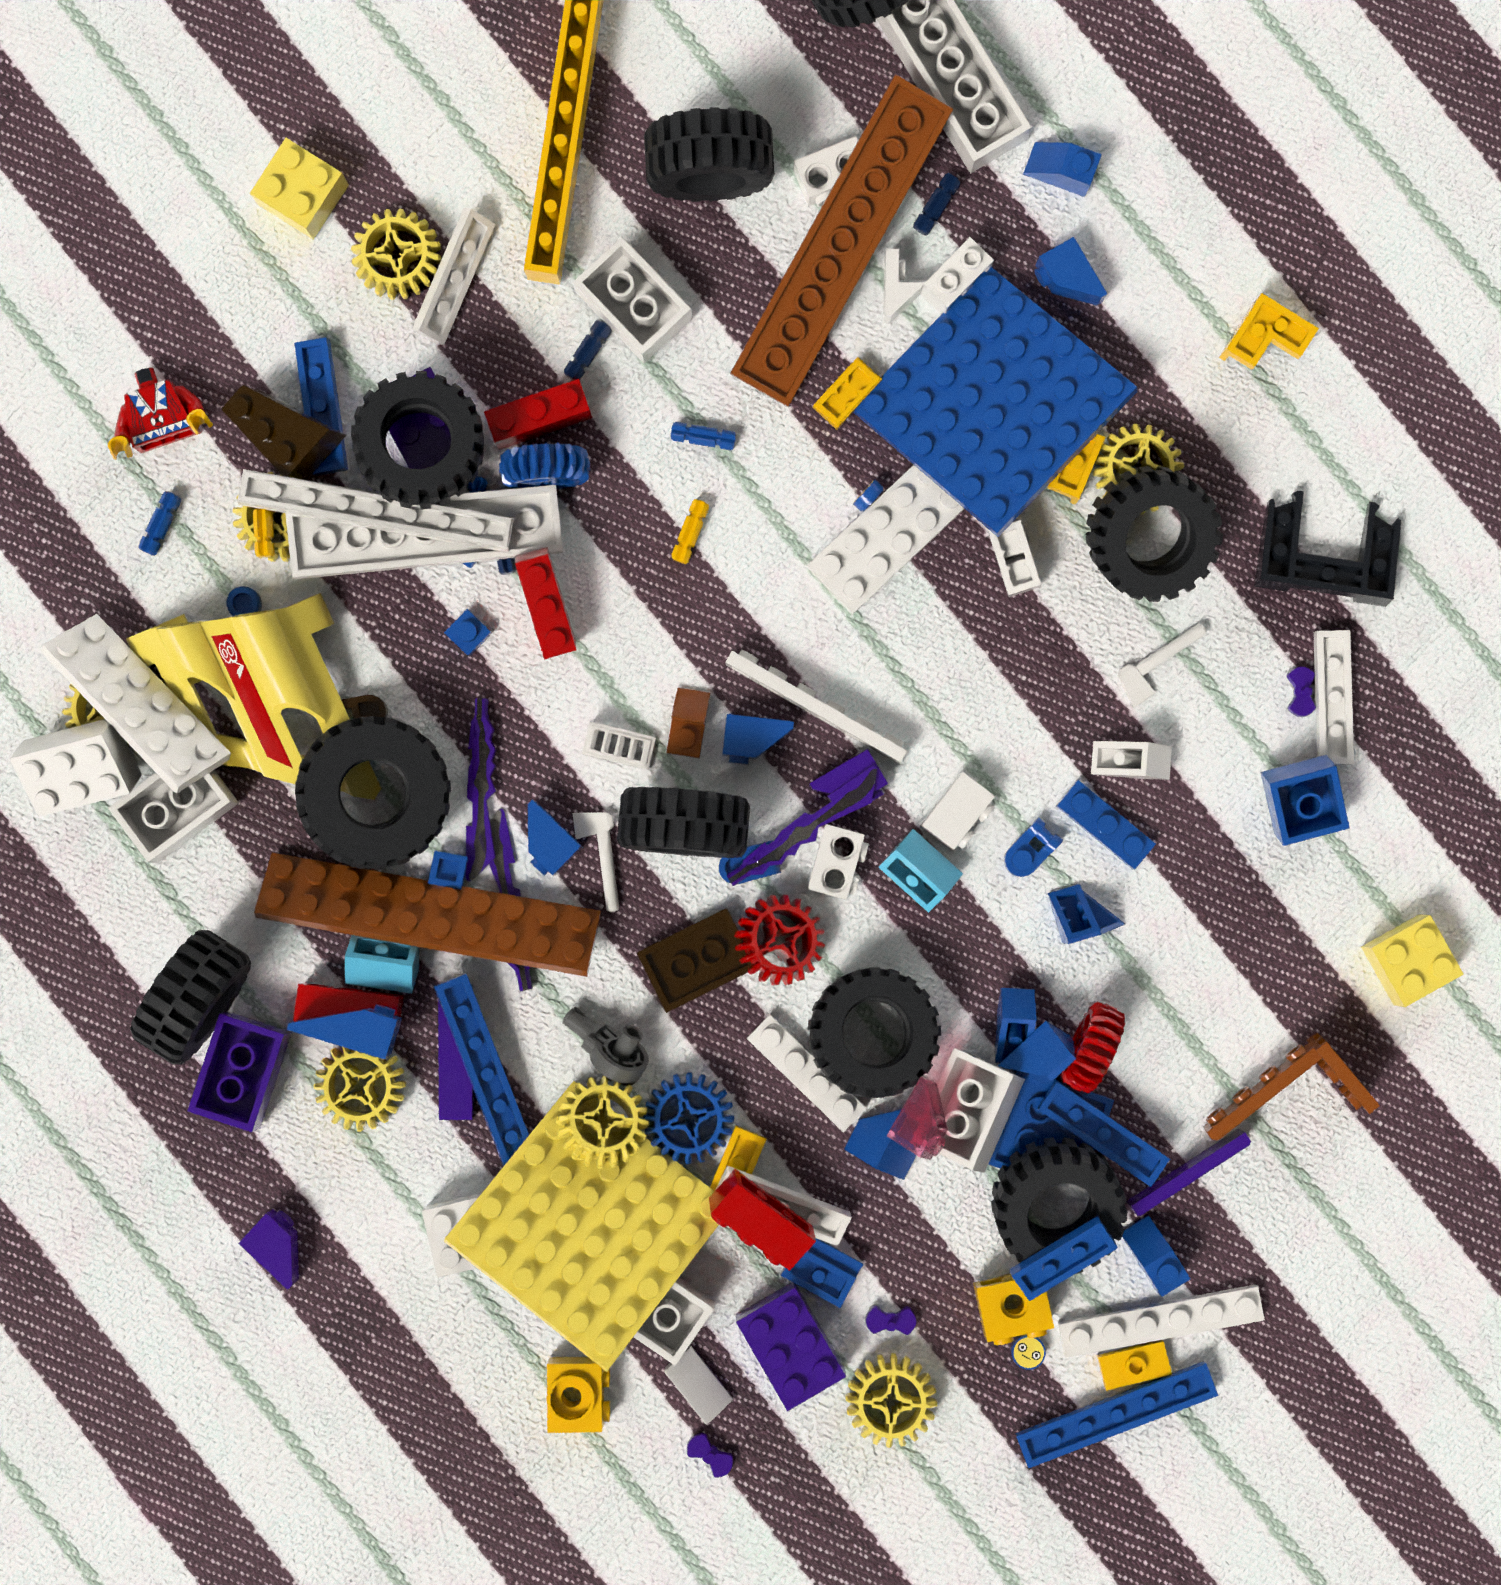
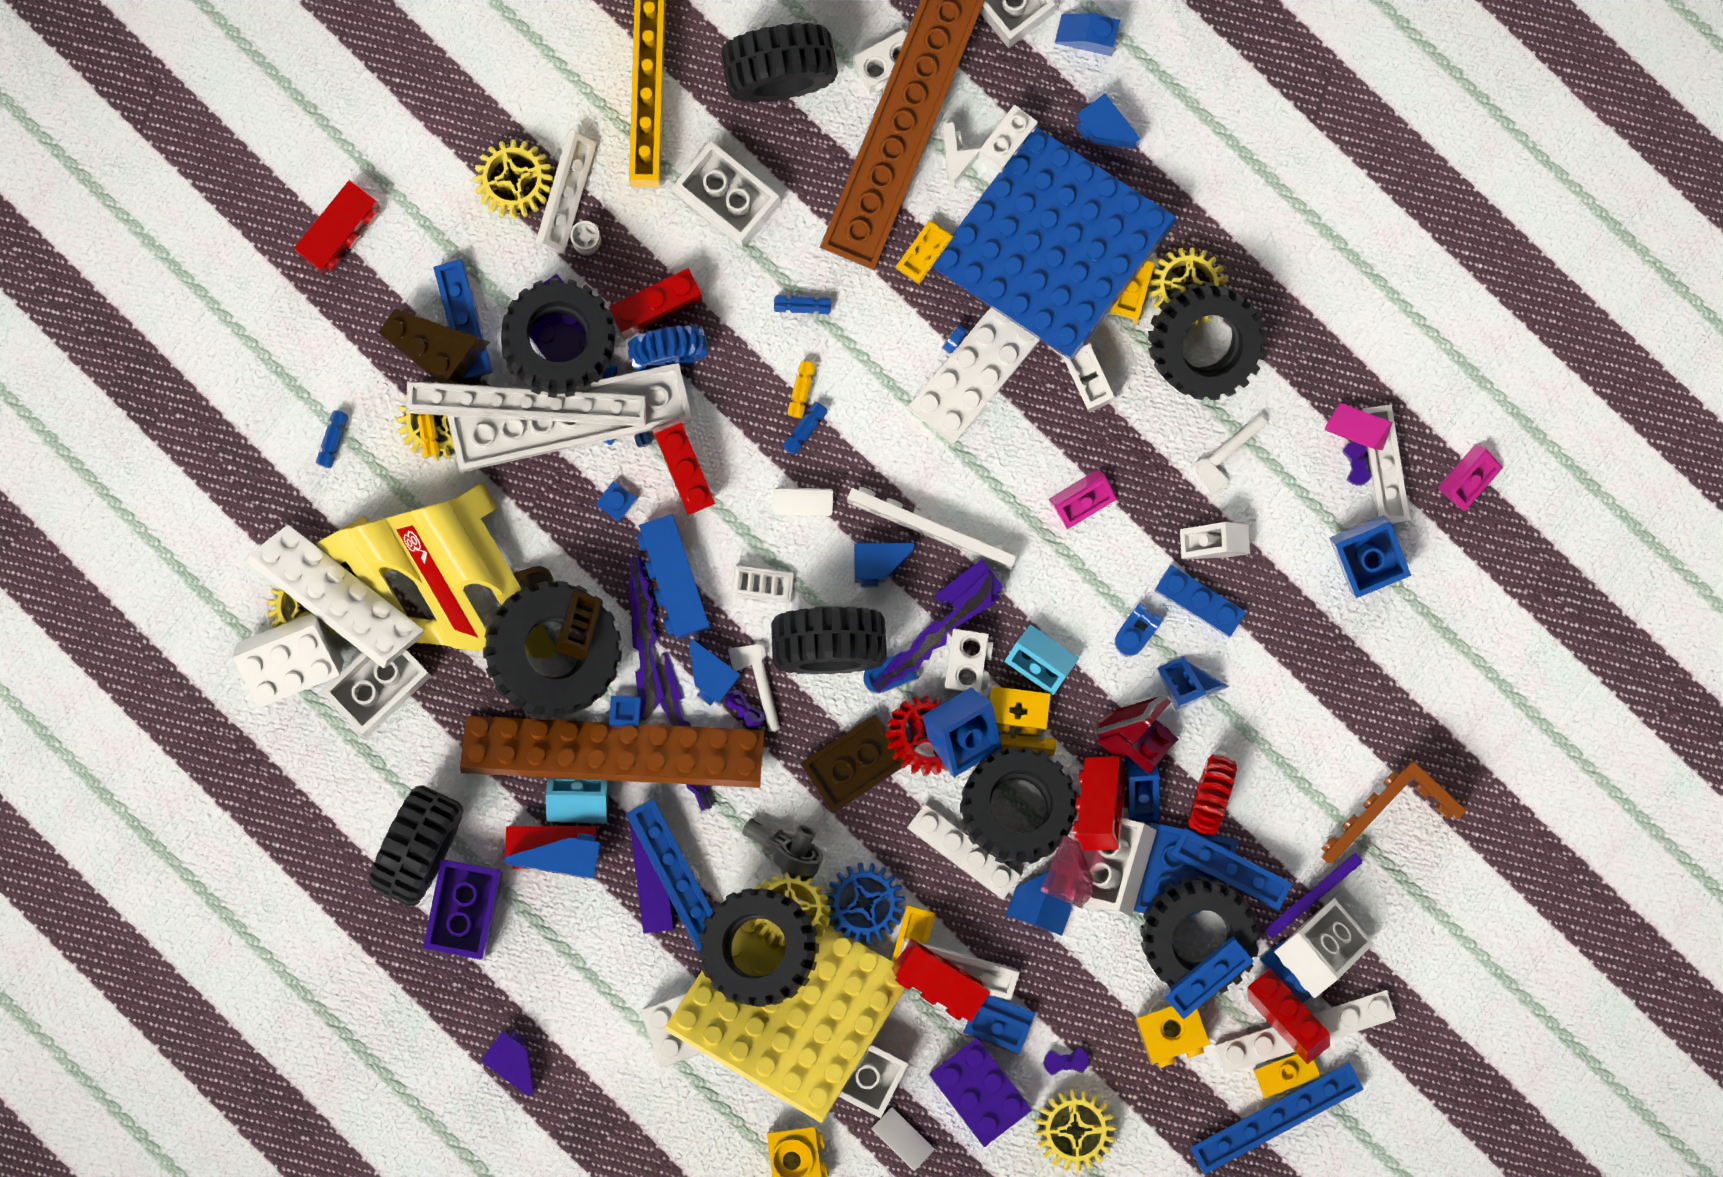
camera: 10 degrees left, 5 degrees down
(156, 415) = (320, 344): torso -> none
(193, 285) = (337, 228): none -> red brick
(243, 601) = (413, 498): blue tile -> none
(299, 188) = (421, 132): light yellow brick -> none
(370, 1097) = (559, 920): light yellow gear -> none
(393, 798) = (573, 643): none -> dark brown slope
(464, 327) = (584, 232): none -> white wheel
(514, 1176) = (717, 947): none -> black tyre
(520, 725) = (674, 577): none -> blue brick
(575, 874) = (738, 702): none -> dark purple piece
(587, 350) = (691, 242): dark blue axle -> none
(676, 658) = (802, 501): none -> white slope
(688, 575) = (804, 428): none -> blue axle
(688, 722) = (820, 557): dark orange slope -> none
(822, 942) = (963, 731): none -> blue slope
(891, 960) = (1047, 744): none -> yellow axle
(907, 921) = (1033, 703): none -> yellow brick
(936, 204) = (982, 78): dark blue axle -> none
(958, 811) = (1068, 604): white brick -> none
(966, 1045) = (1100, 803): none -> red brick
(989, 693) = (1083, 498): none -> dark pink slope
(1017, 967) = (1137, 732): none -> dark red piece
(1028, 1352) = (1191, 1073): light yellow tile -> none
(1043, 1053) = (1168, 803): blue slope -> none
(1146, 1307) = (1288, 1016): none -> red brick
(1197, 1238) = (1324, 948): none -> white brick
(1264, 324) = (1286, 147): yellow panel -> none
(1311, 651) = (1359, 427): none -> dark pink slope
(1366, 580) = (1401, 359): black wedge -> none
(1412, 960) = (1483, 685): light yellow brick -> none
(1426, 722) = (1470, 477): none -> dark pink slope

